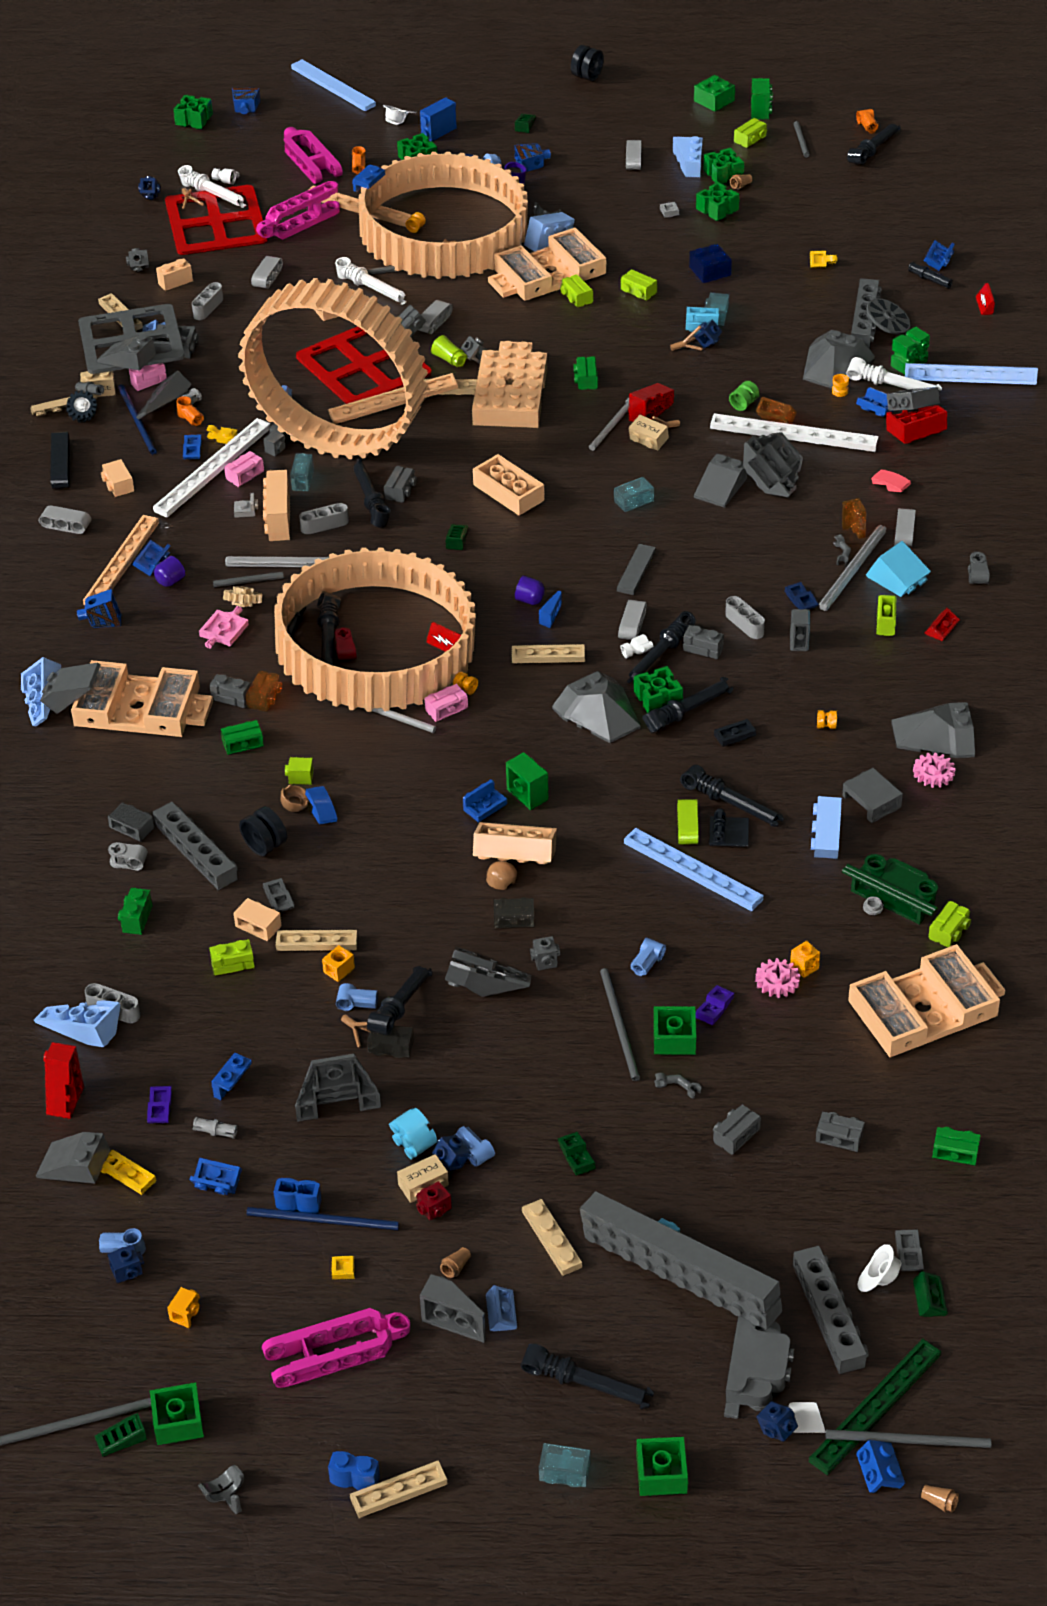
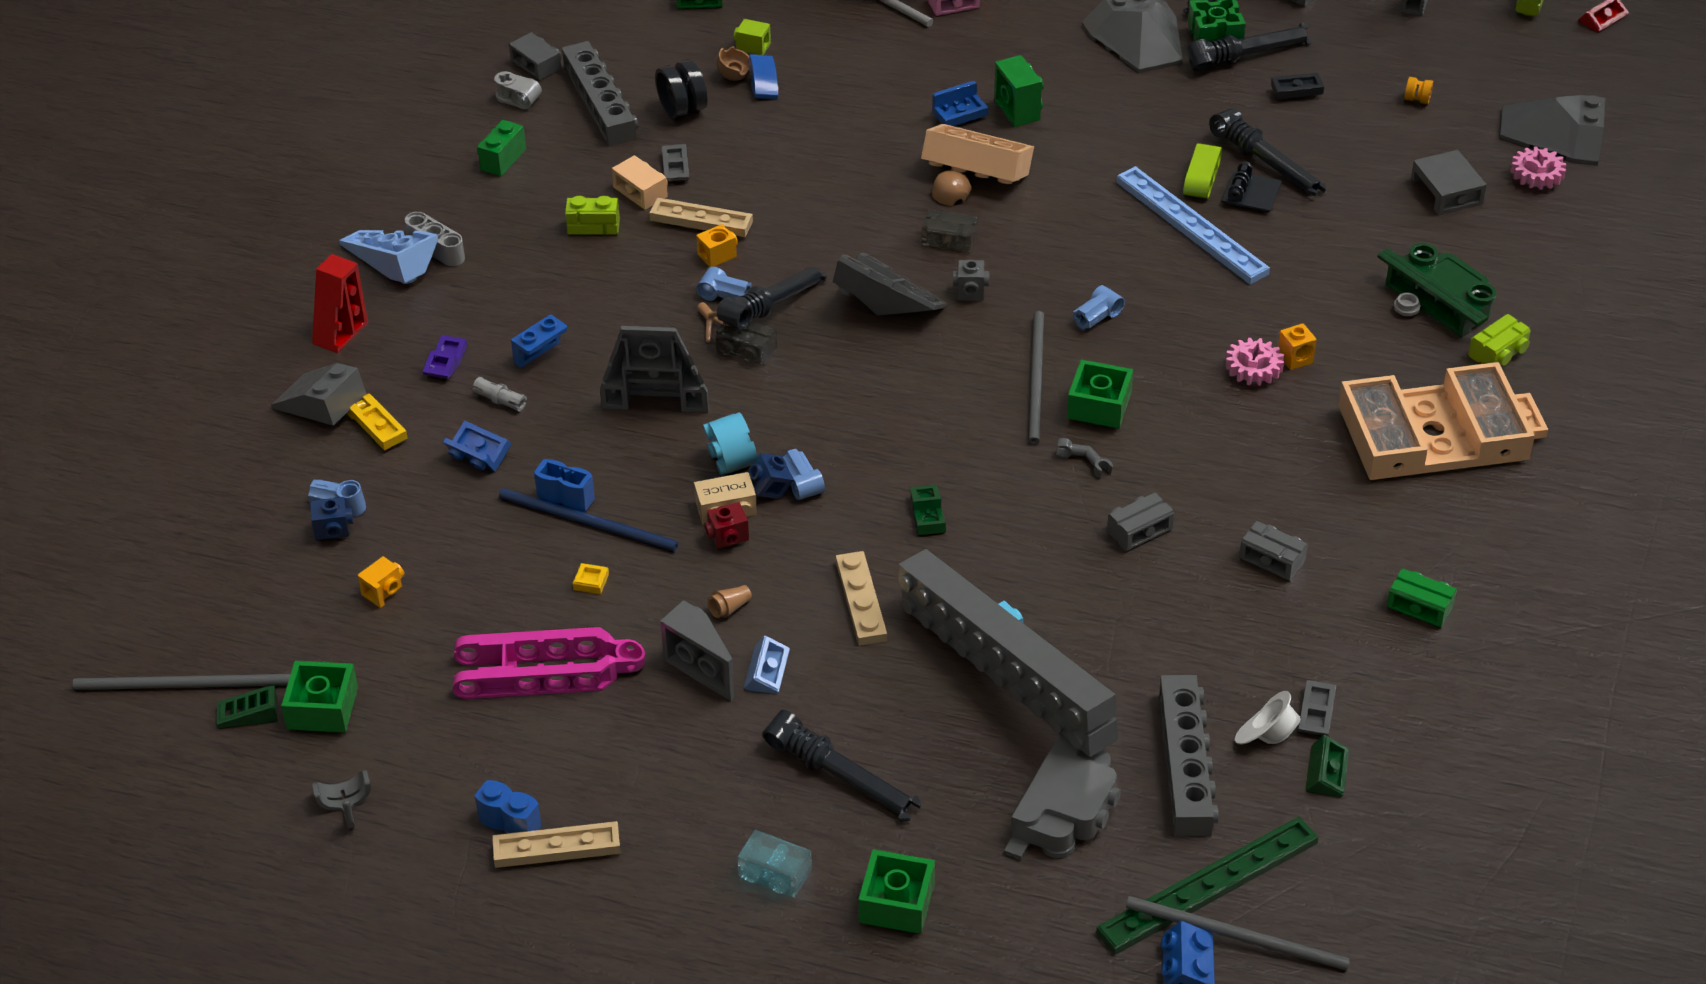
camera: 15 degrees right, 0 degrees up
(715, 1005) = (1166, 377): dark purple slope -> none
(777, 1421) = (1068, 872): dark blue brick -> none
(807, 1417) = (1107, 879): white sticker -> none
(826, 827) = (1376, 205): light blue wedge -> none

